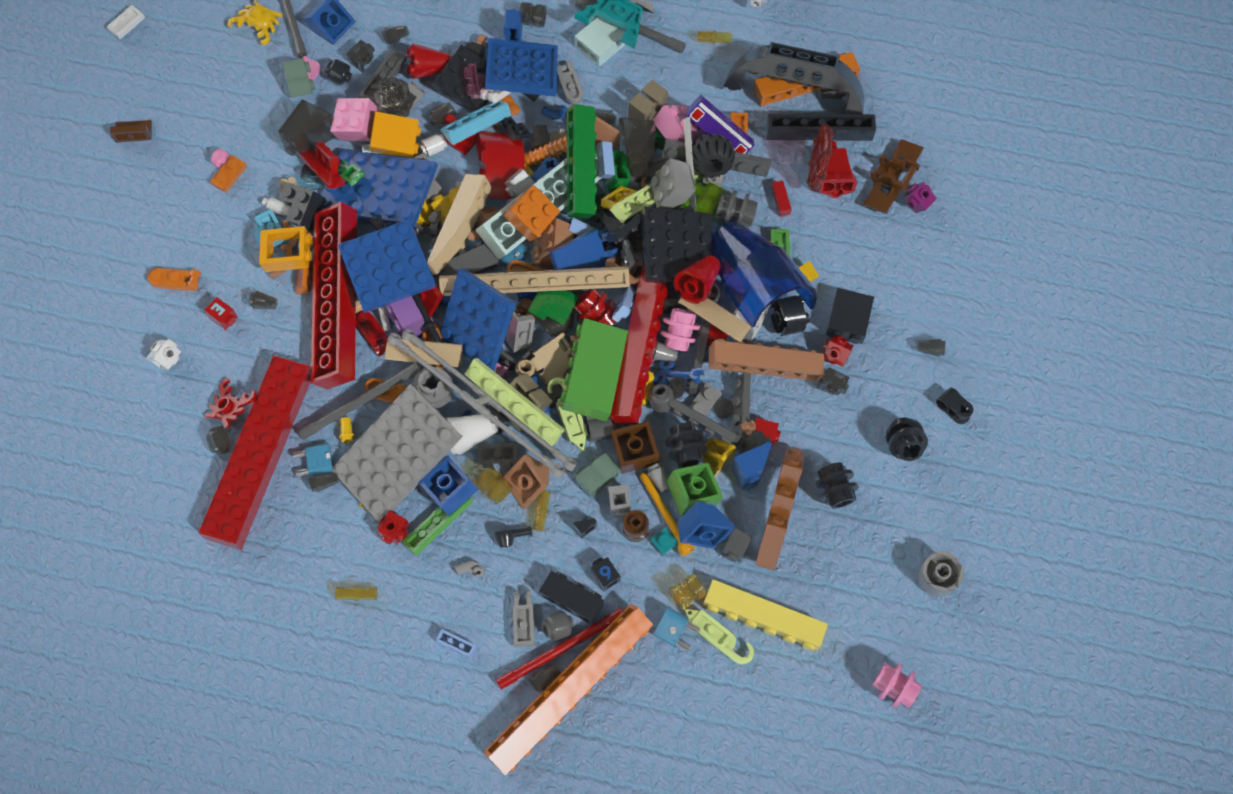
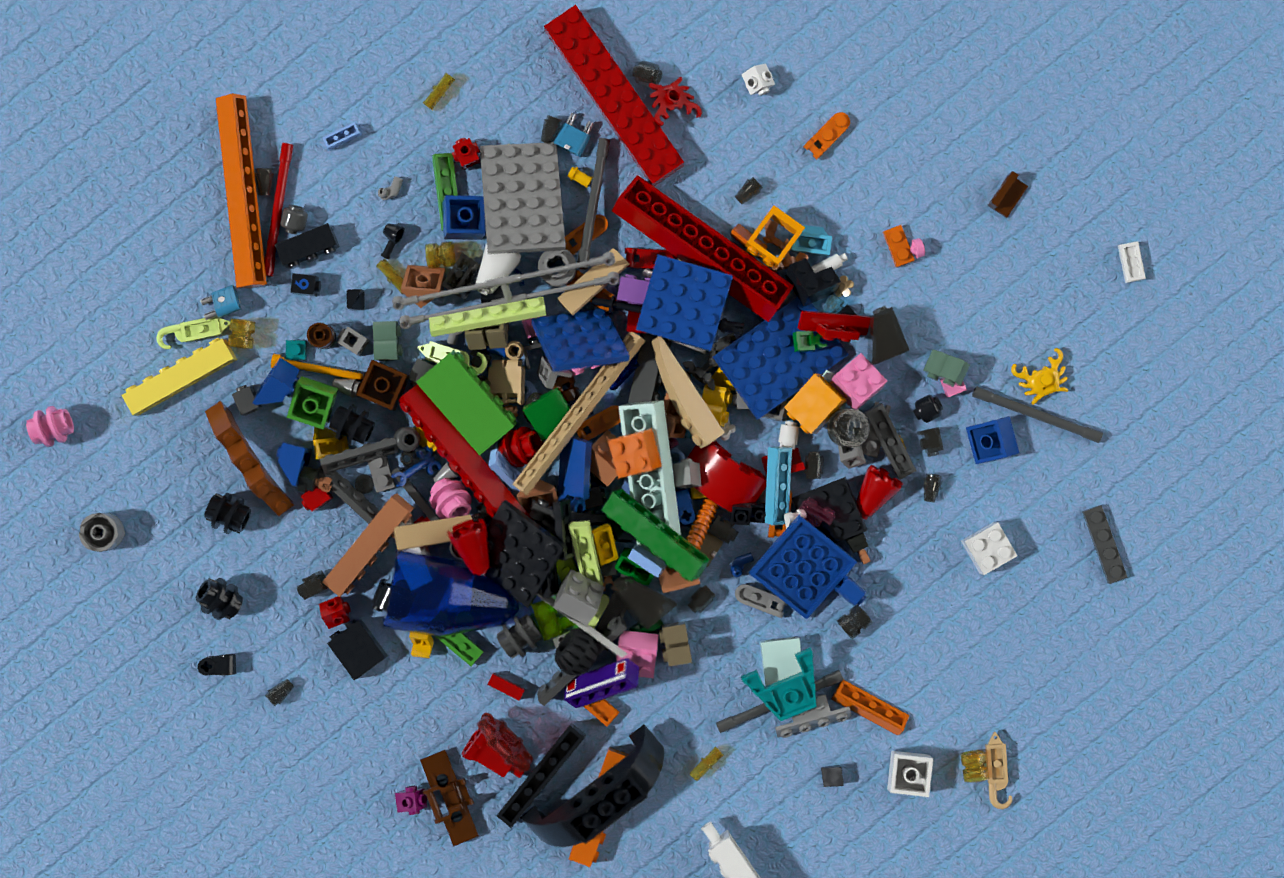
camera: 135 degrees right, 20 degrees up
(221, 313) = (761, 149): red brick -> none
(523, 621) = (319, 197): light grey hinge -> none
(579, 227) = (597, 492): light blue sticker -> none

